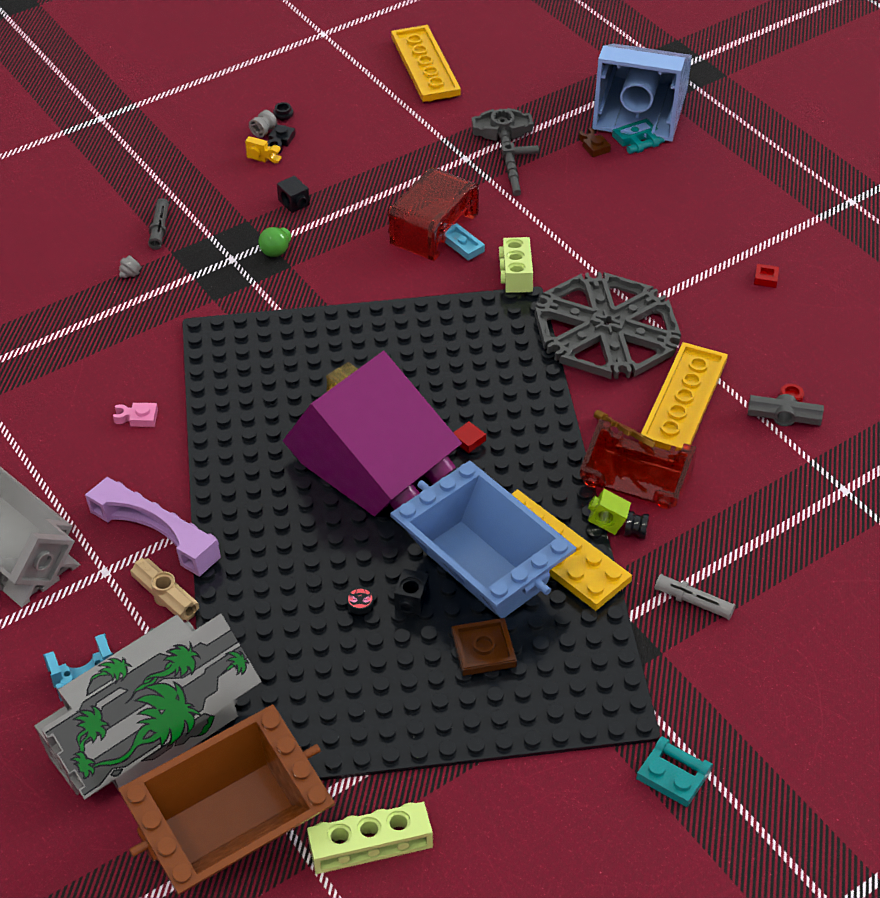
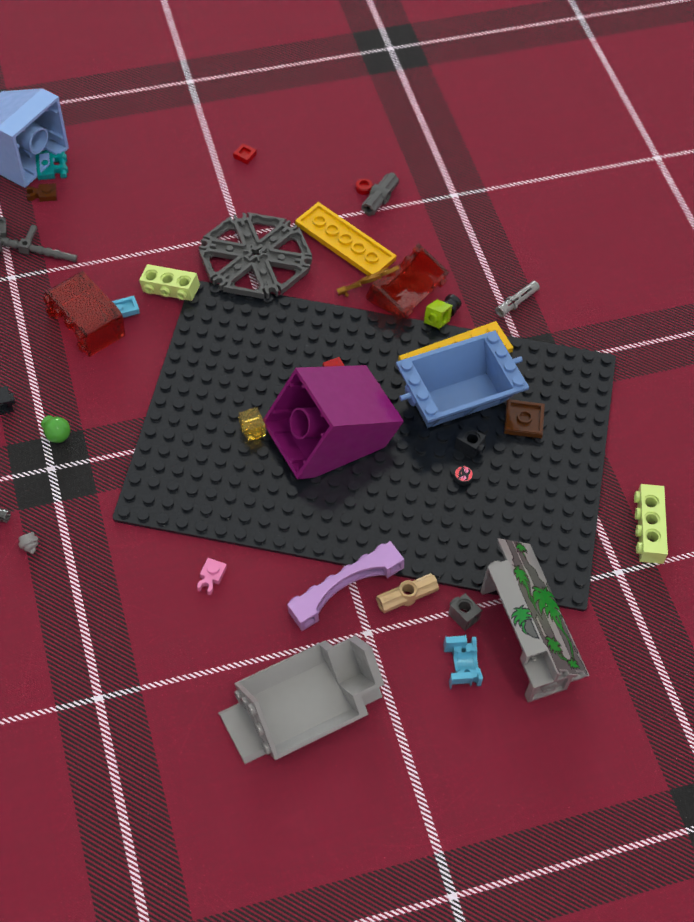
camera: 75 degrees left, 10 degrees up
(225, 799) = (630, 583): dark orange piece -> none
(671, 779) = (644, 362): teal plate -> none

